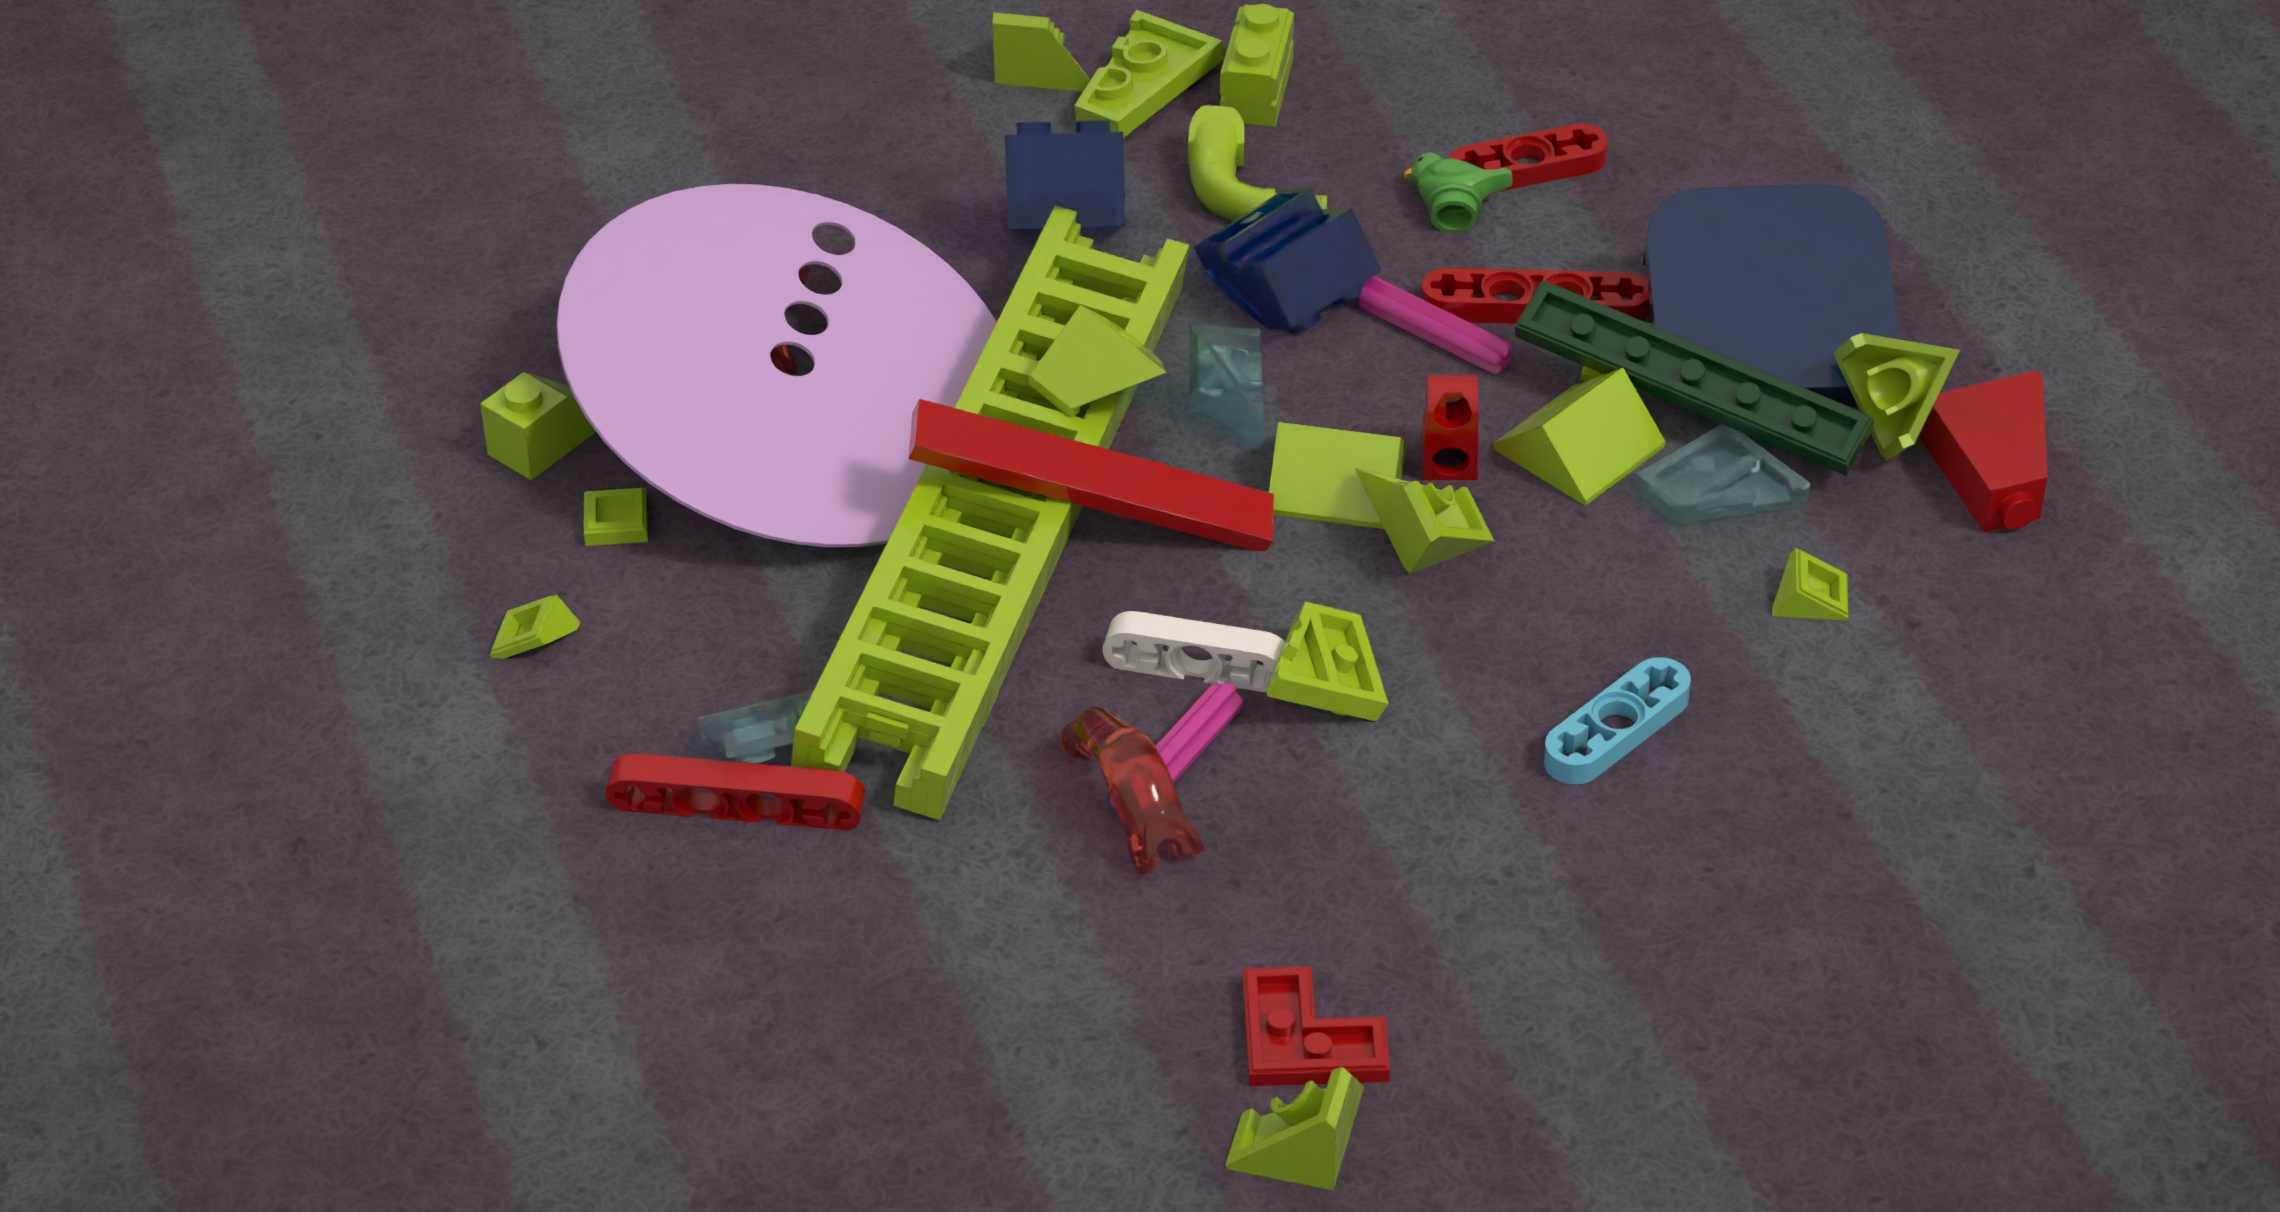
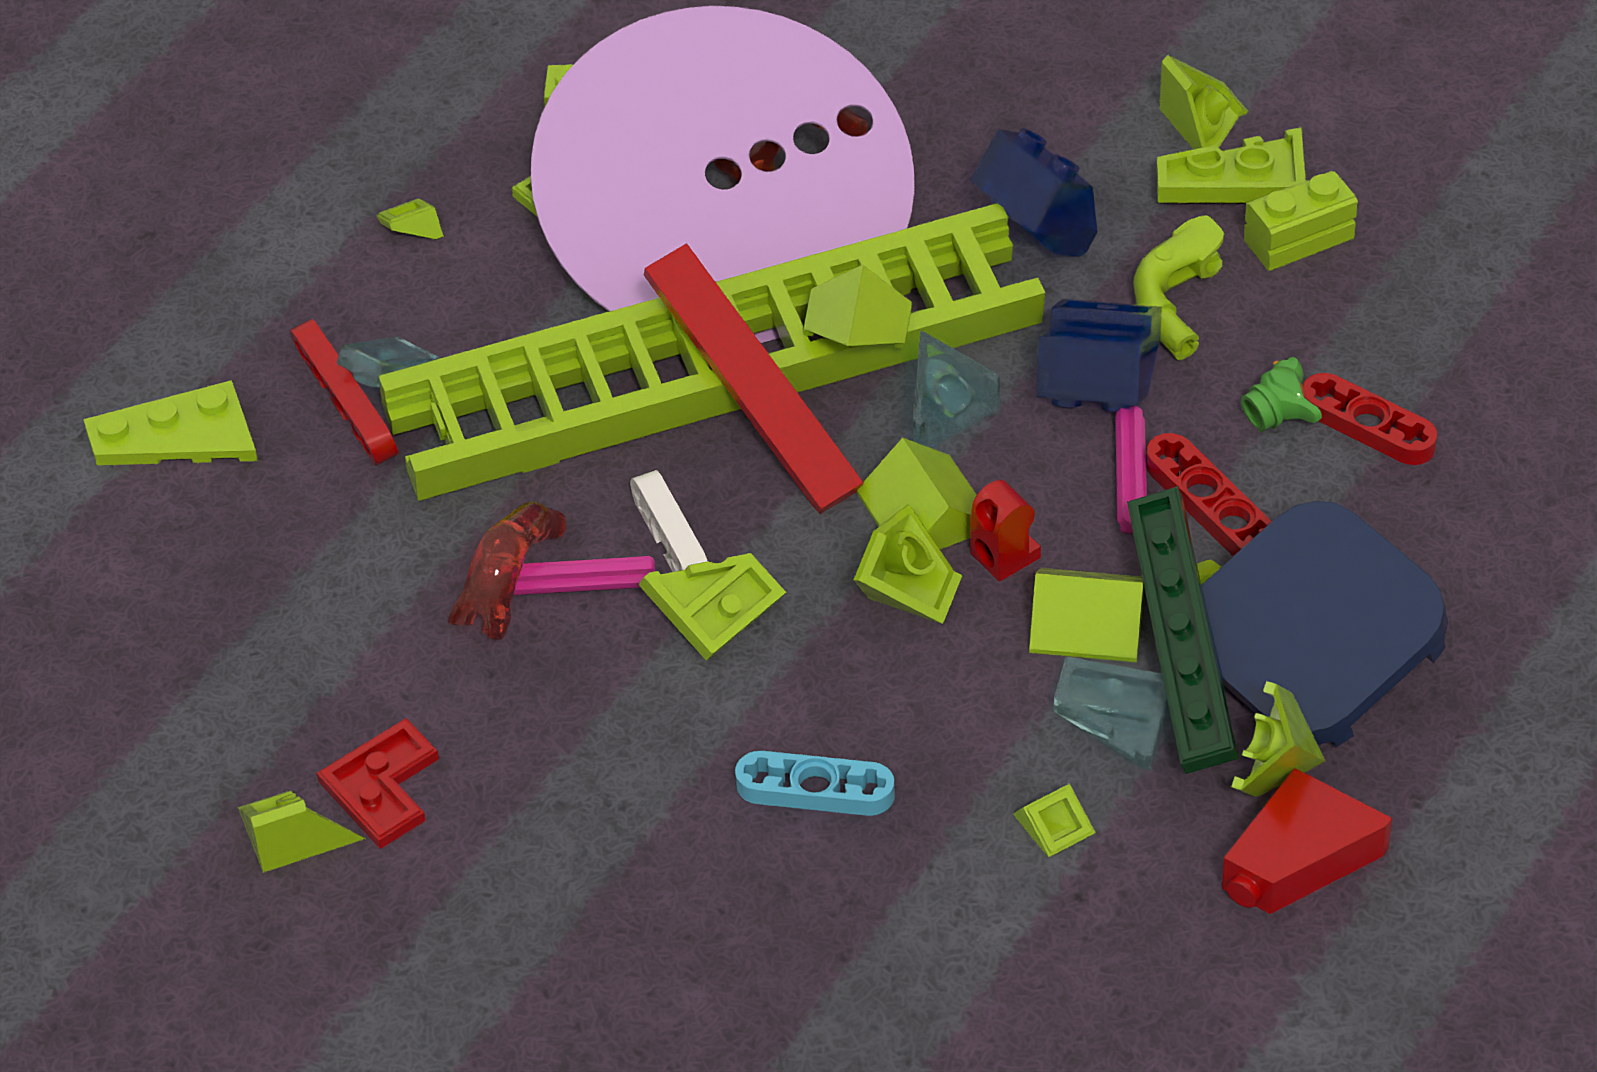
camera: 55 degrees right, 5 degrees up
(624, 955) = (182, 426): none -> lime wing

